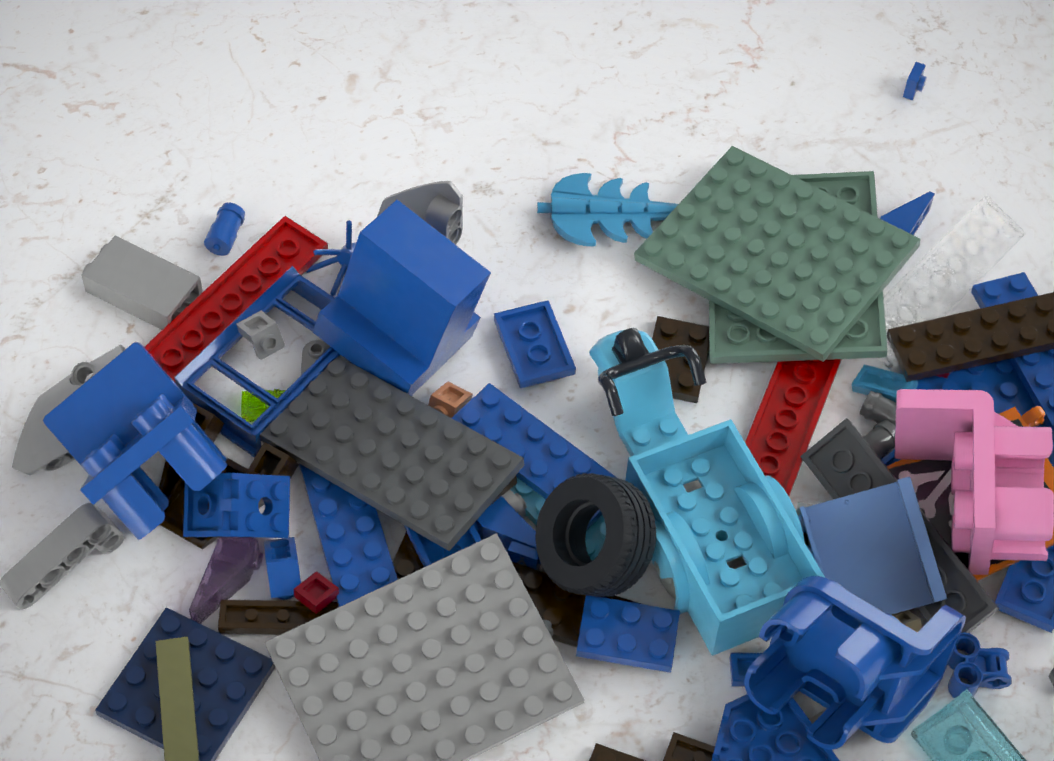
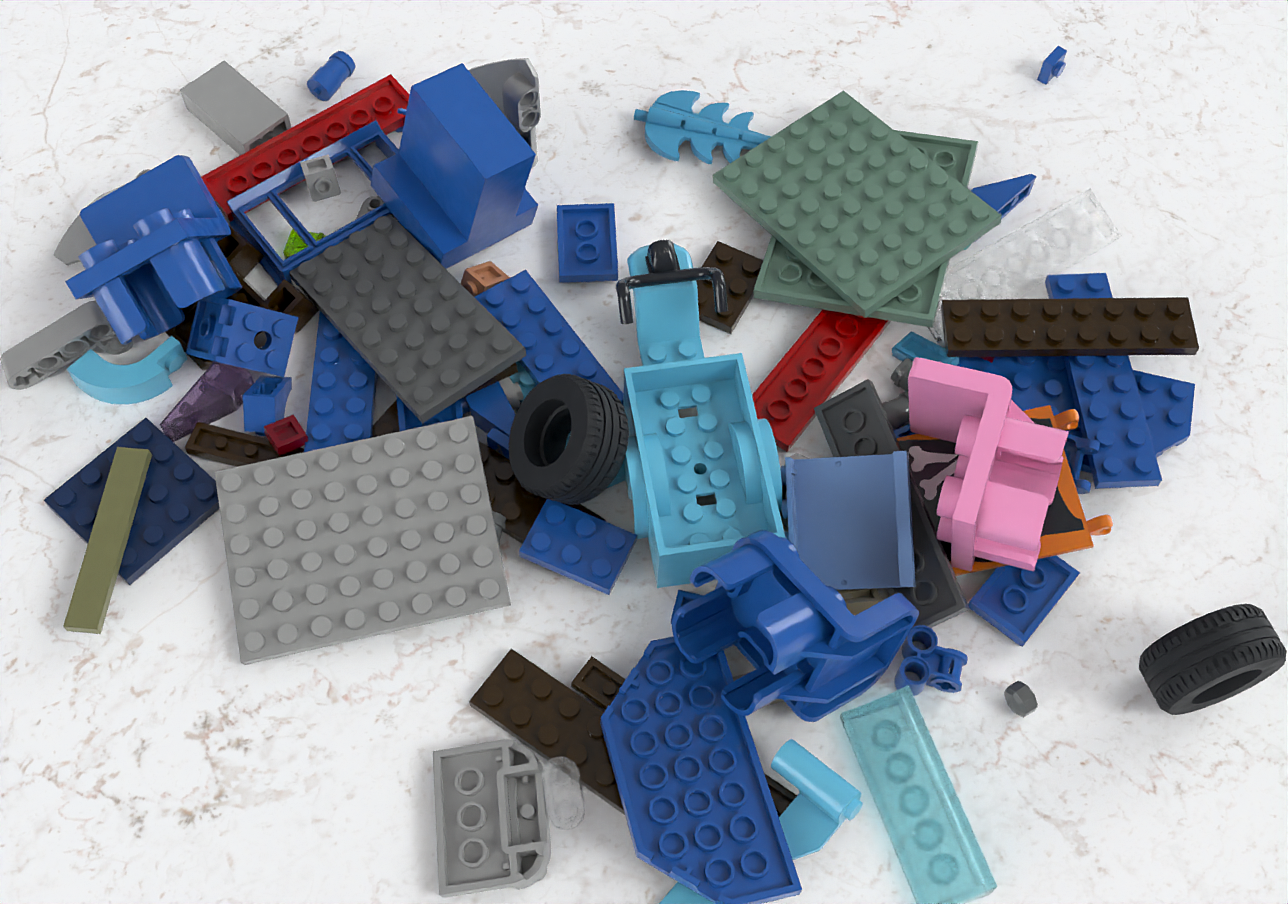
camera: 15 degrees right, 5 degrees up
(132, 579) = (128, 382): none -> medium azure arch

